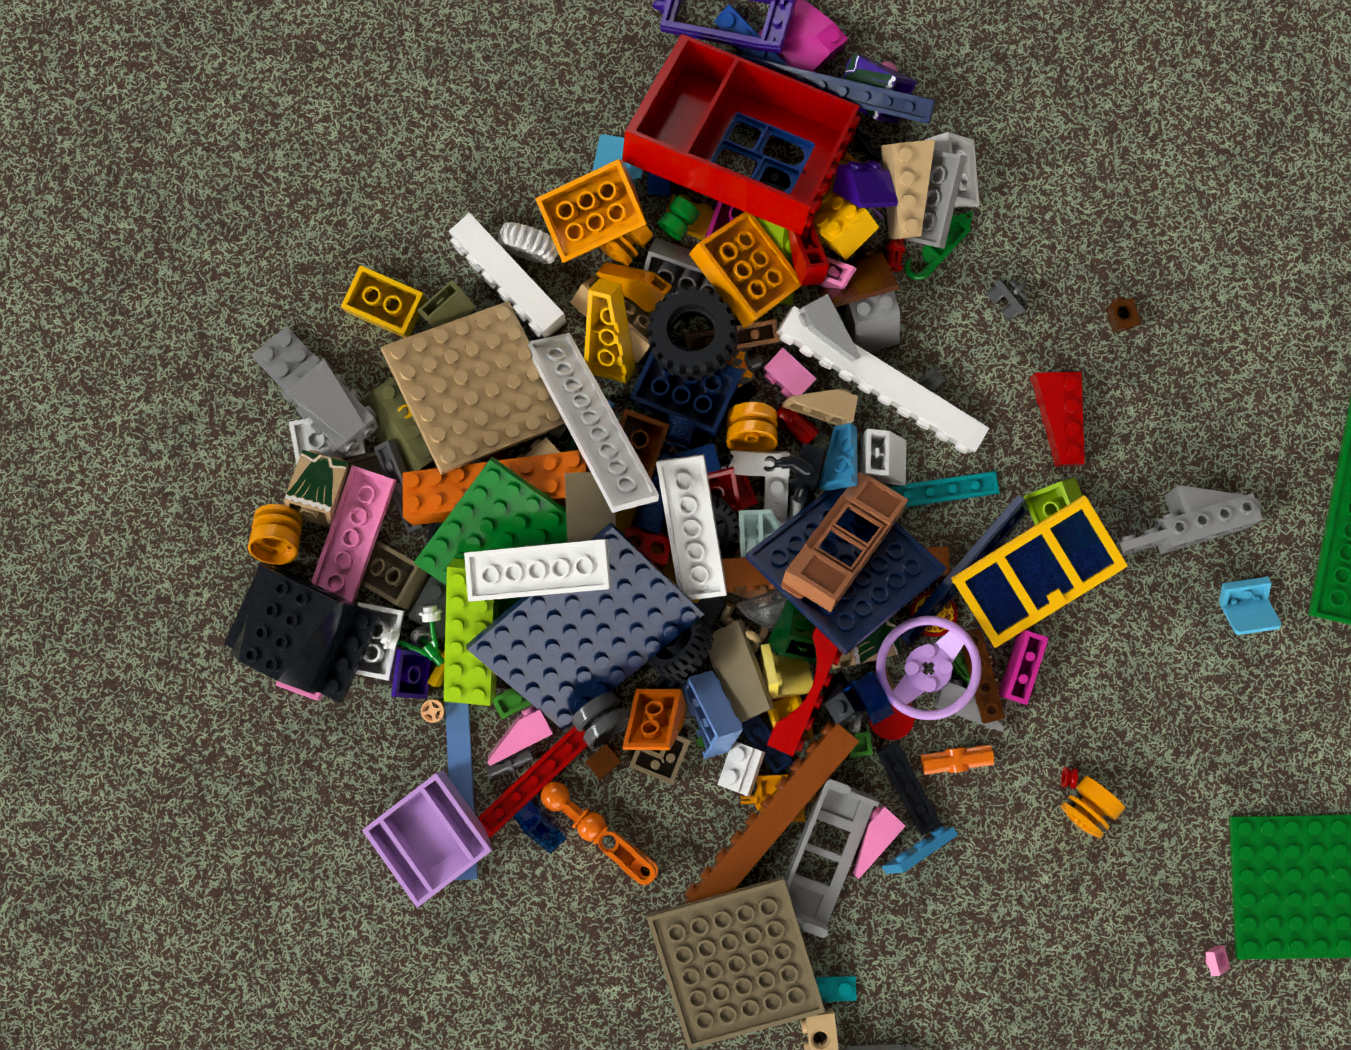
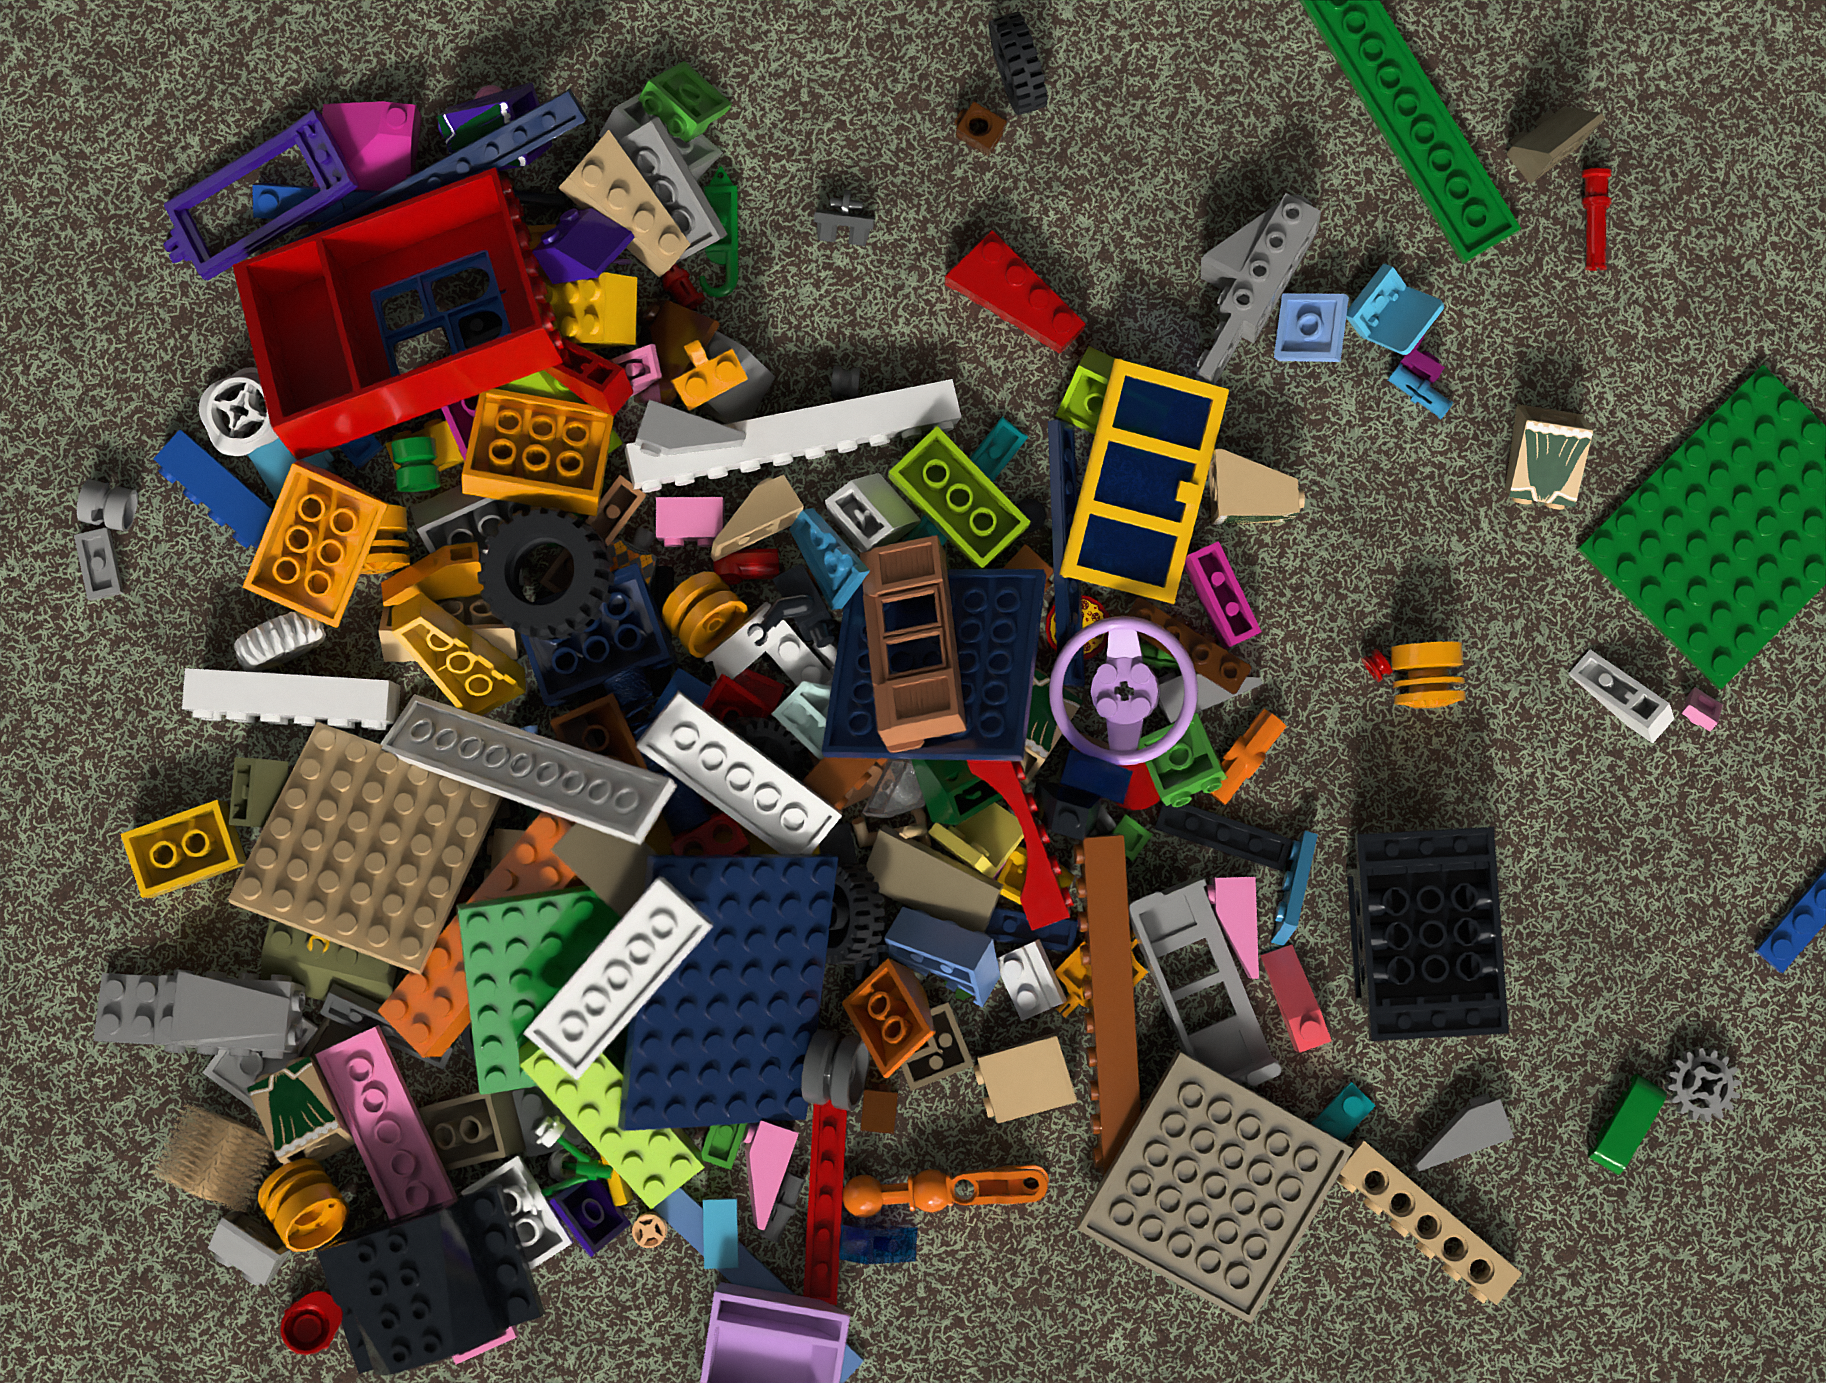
camera: 45 degrees left, 0 degrees up
(224, 596) = (311, 1323): none -> red hat
(229, 529) = (248, 1247): none -> light grey slope
(254, 468) = (214, 1157): none -> tan piece
(466, 746) = (720, 1233): none -> medium azure tile
(475, 122) = (98, 564): none -> light grey plate
(506, 95) = (102, 504): none -> light grey wheel
(568, 137) = (216, 487): none -> blue brick
(606, 95) = (214, 401): none -> white piece
(692, 816) = (1025, 1079): none -> tan slope
(866, 907) = (1295, 999): none -> coral slope
(868, 311) = (707, 377): none -> light orange plate
(923, 736) = (1186, 766): none -> bright green plate
(935, 491) = (958, 499): none -> lime brick
(962, 533) = (1034, 512): none -> black plate
(967, 940) = (1428, 934): none -> black wedge
(984, 161) = (683, 101): none -> bright green plate
(1089, 628) = (1250, 491): none -> tan slope
(1175, 299) = (1018, 63): none -> black wheel
(1183, 915) = (1623, 696): none -> white slope
(1199, 574) = (1311, 327): none -> light blue plate
(1224, 659) = (1420, 391): none -> dark azure pin
(1238, 647) = (1422, 364): none -> magenta bracket
(1259, 755) = (1547, 456): none -> slope

